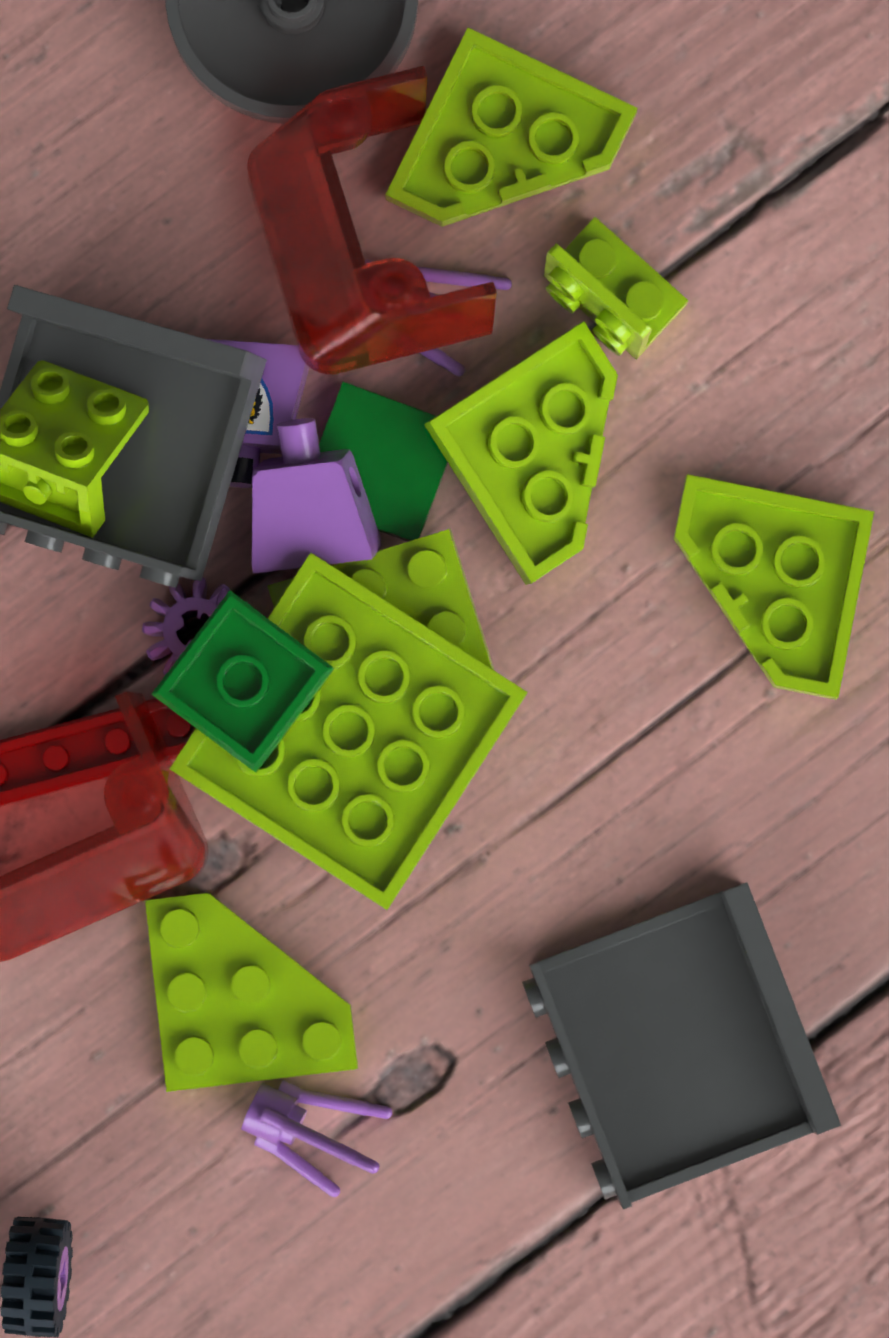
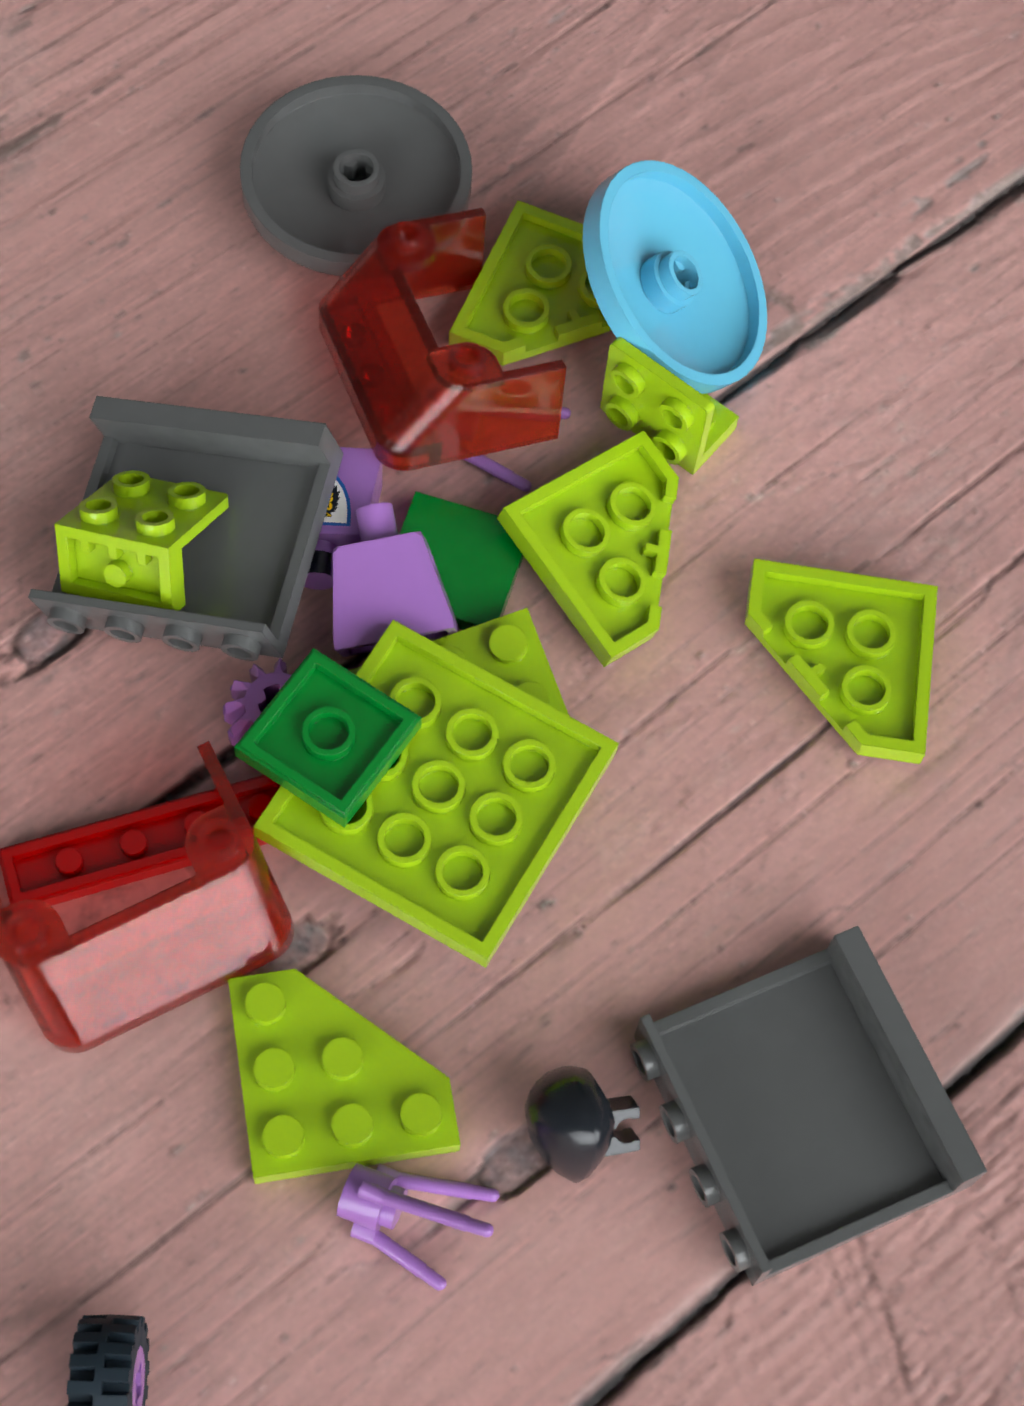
camera: 10 degrees left, 20 degrees down
(462, 1056) = (575, 1122): none -> black piece
(627, 153) = (675, 274): none -> medium azure dish

